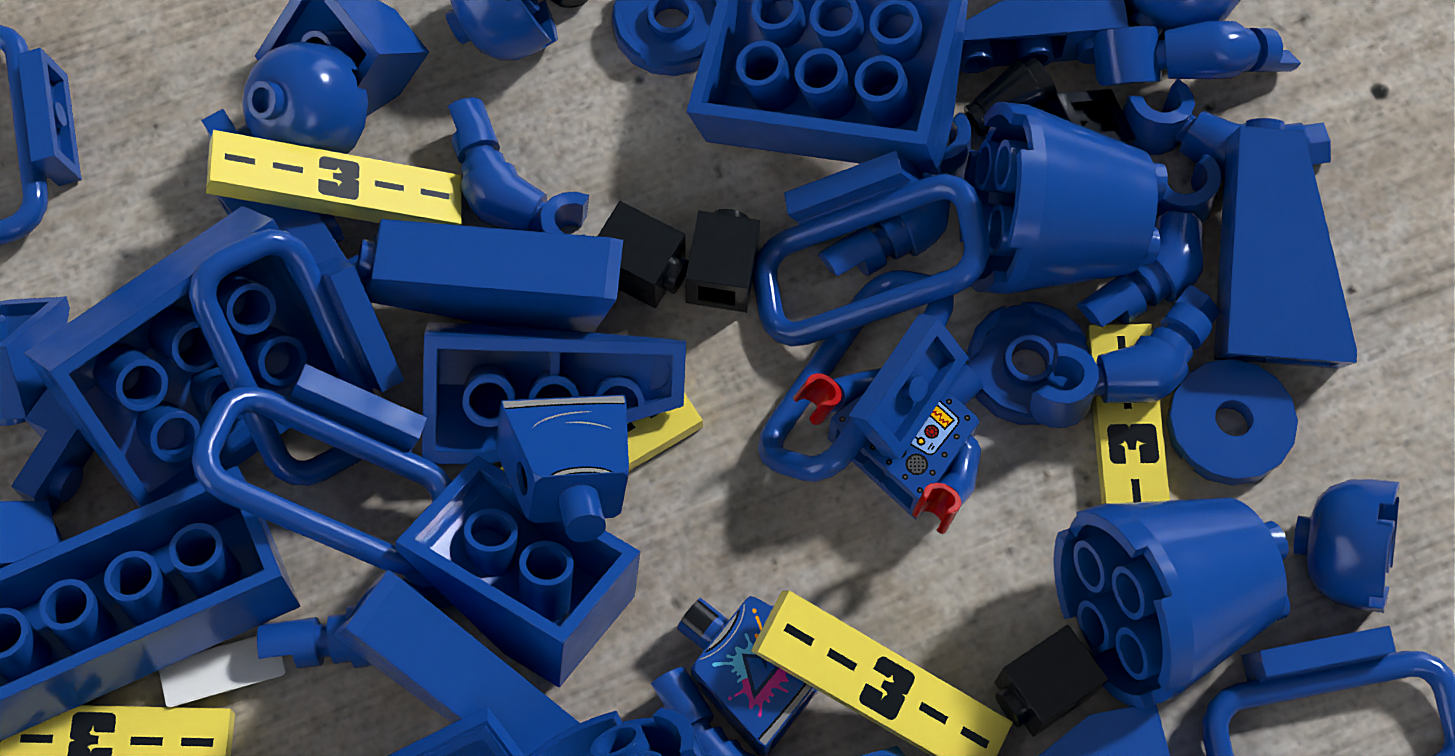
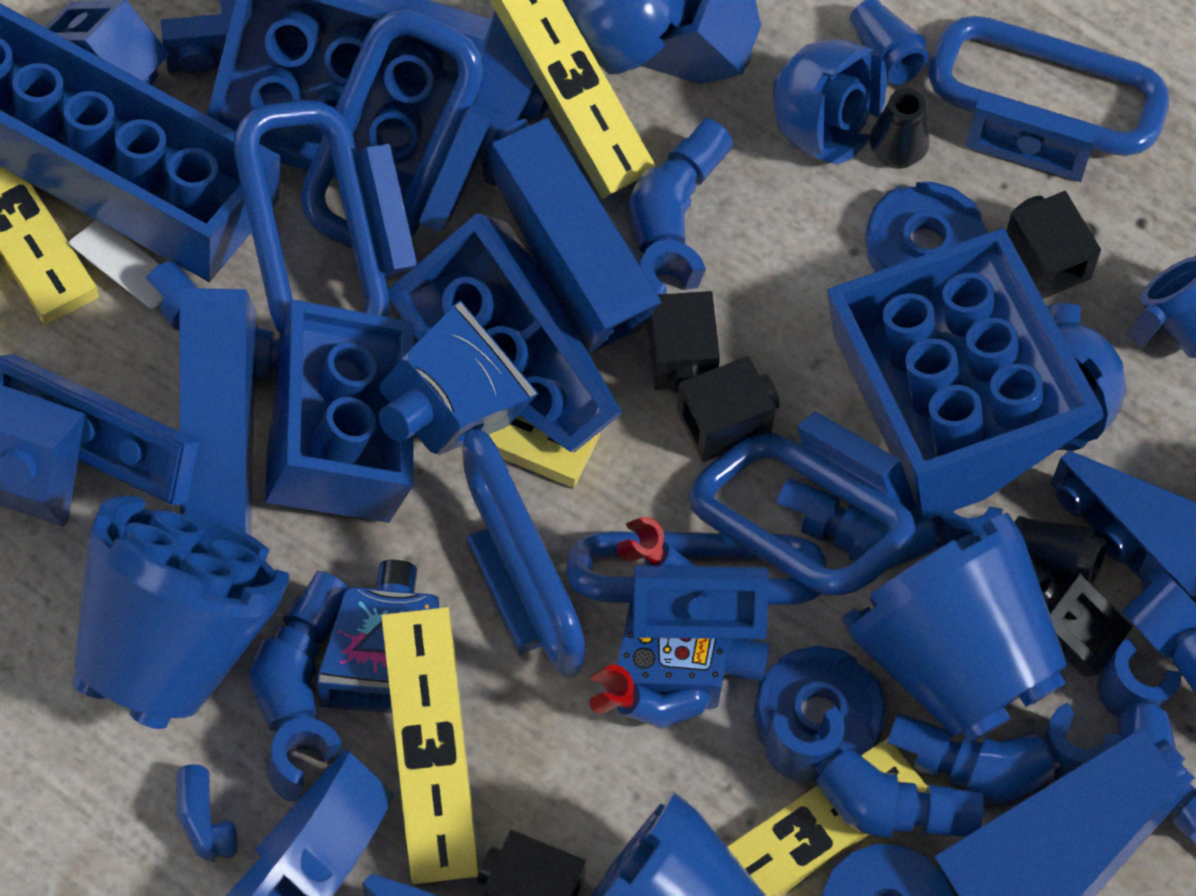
camera: 55 degrees right, 5 degrees down
(766, 509) = (517, 563): none -> blue bar

